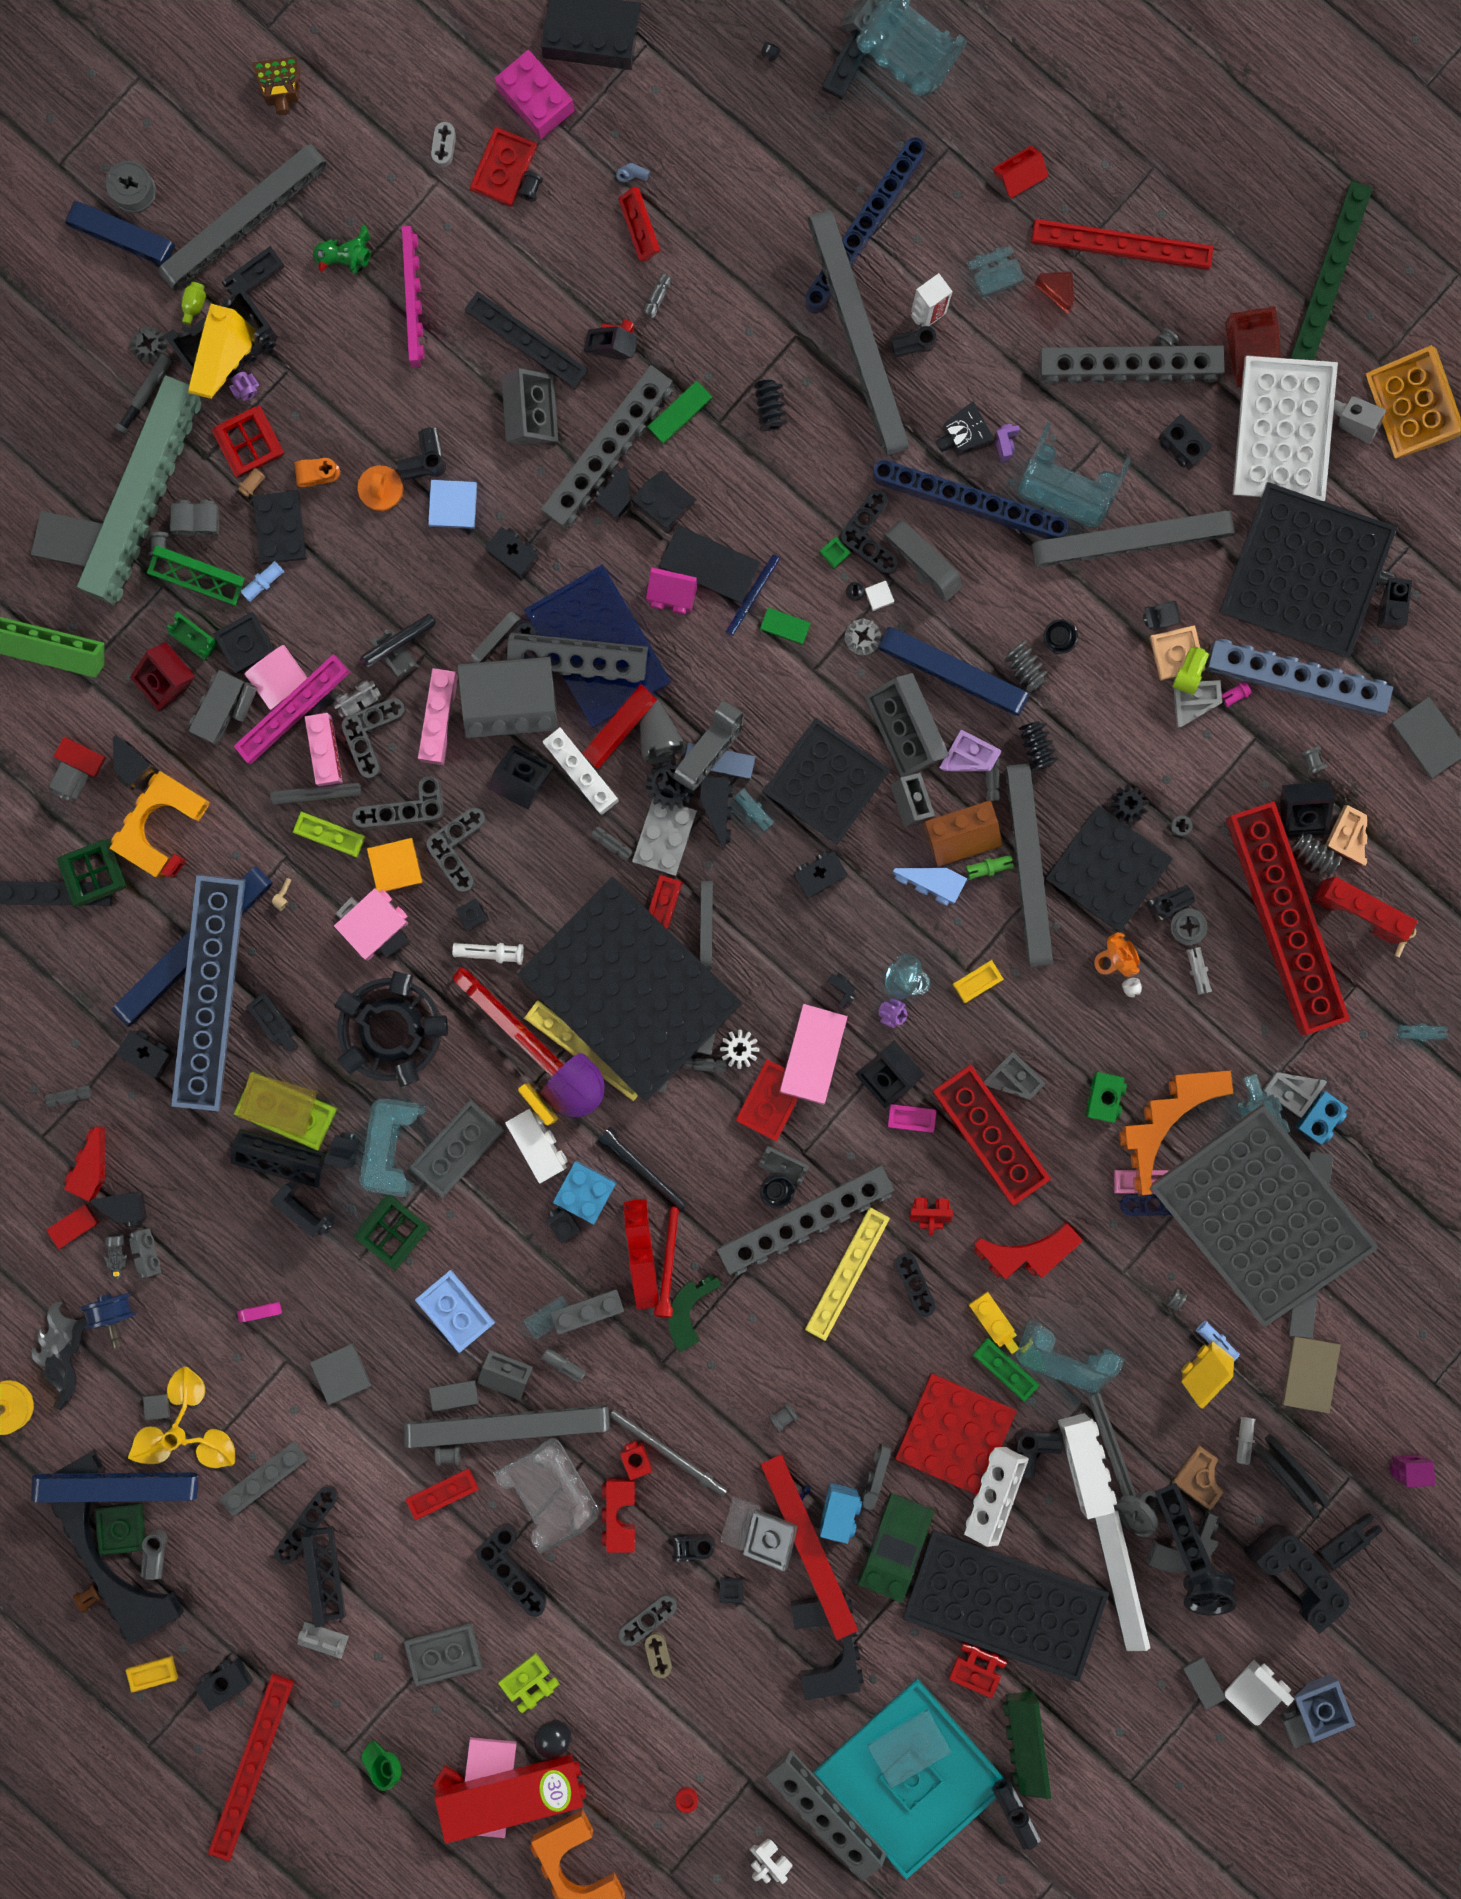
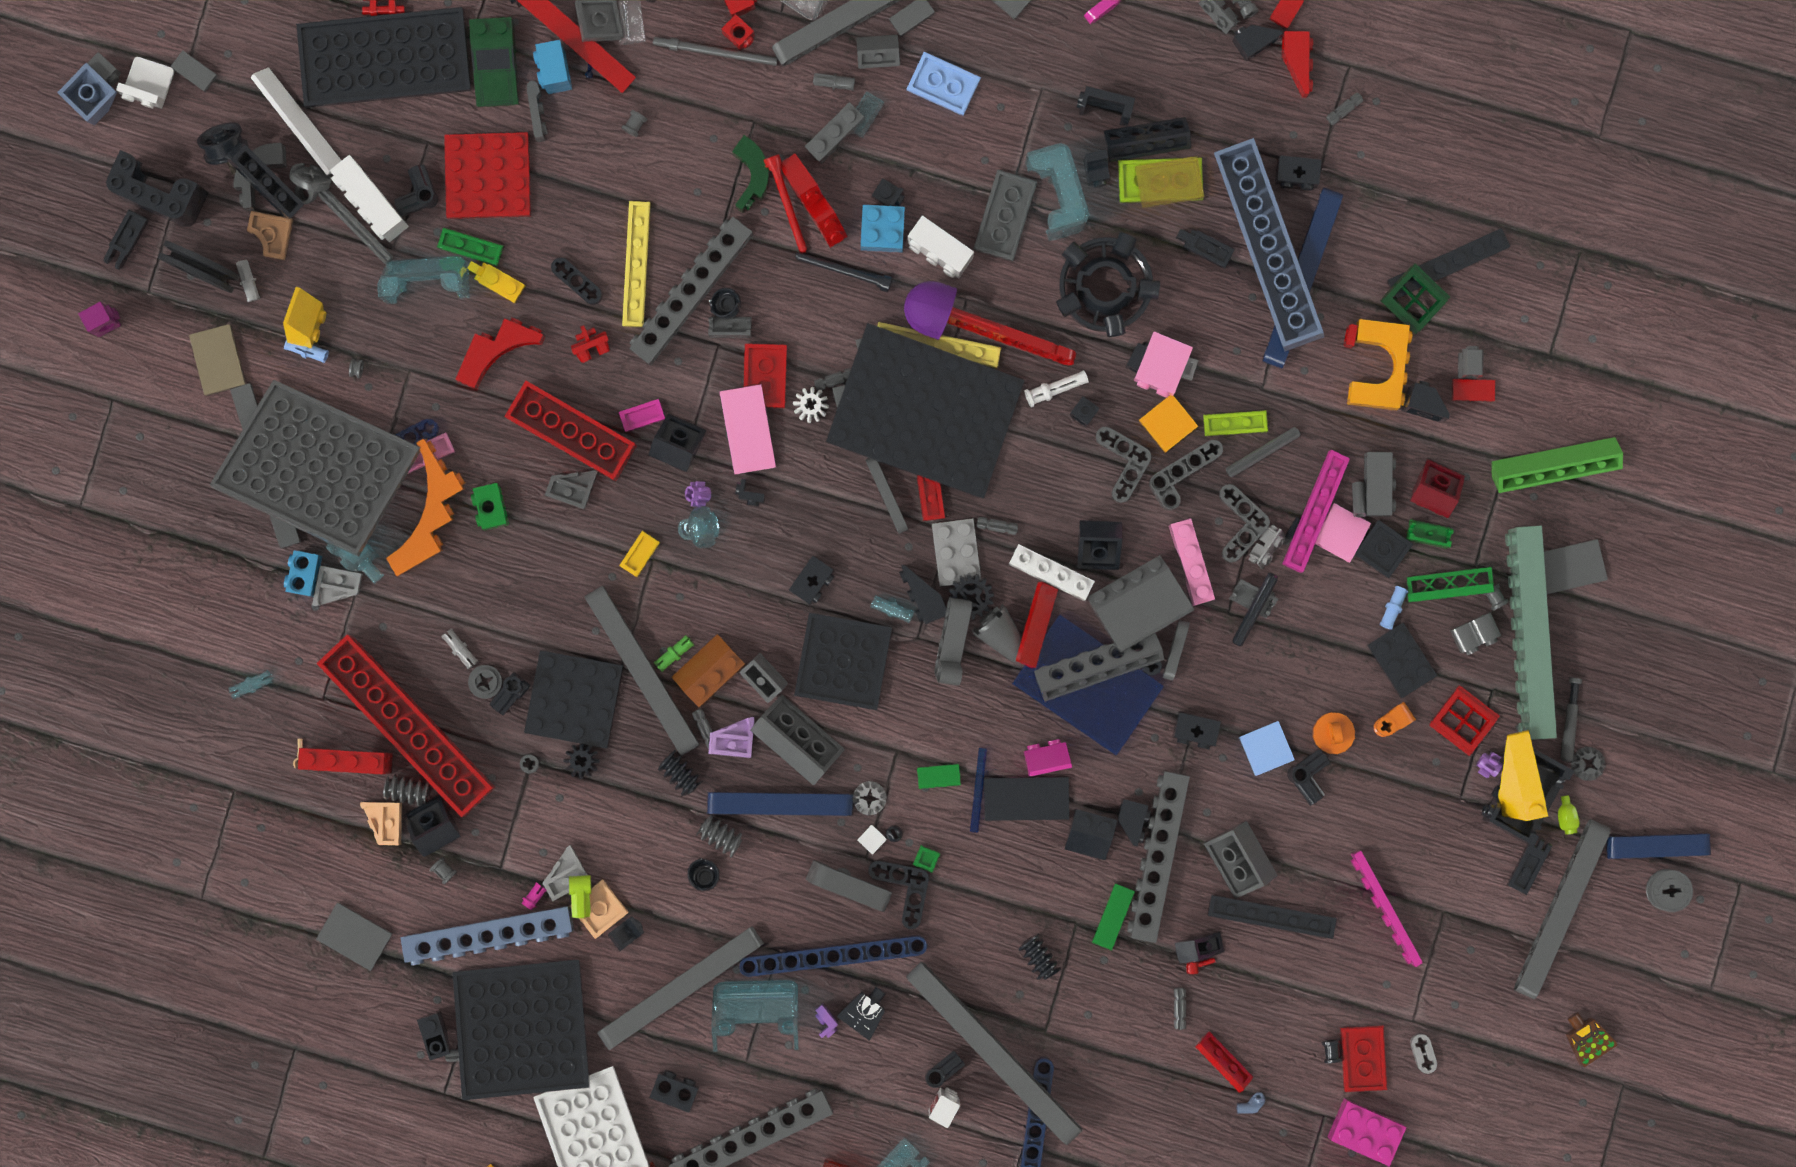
camera: 155 degrees right, 0 degrees up
(251, 483) = (1444, 686): medium nougat pin -> none
(278, 900) = (1249, 348): tan hand -> none
(323, 750) = (1273, 490): bright pink brick -> none
(351, 253) = (1455, 920): green animal -> none
(407, 1244) = (1008, 119): dark green piece -> none
(538, 1104) = (954, 279): yellow tile -> none
(732, 764) = (930, 639): sand blue tile -> none
(937, 881) = (708, 621): light blue slope -> none
(998, 1510) = (426, 149): white brick -> none
(1122, 956) = (529, 630): orange tile -> none
(1131, 987) = (509, 609): white hinge -> none

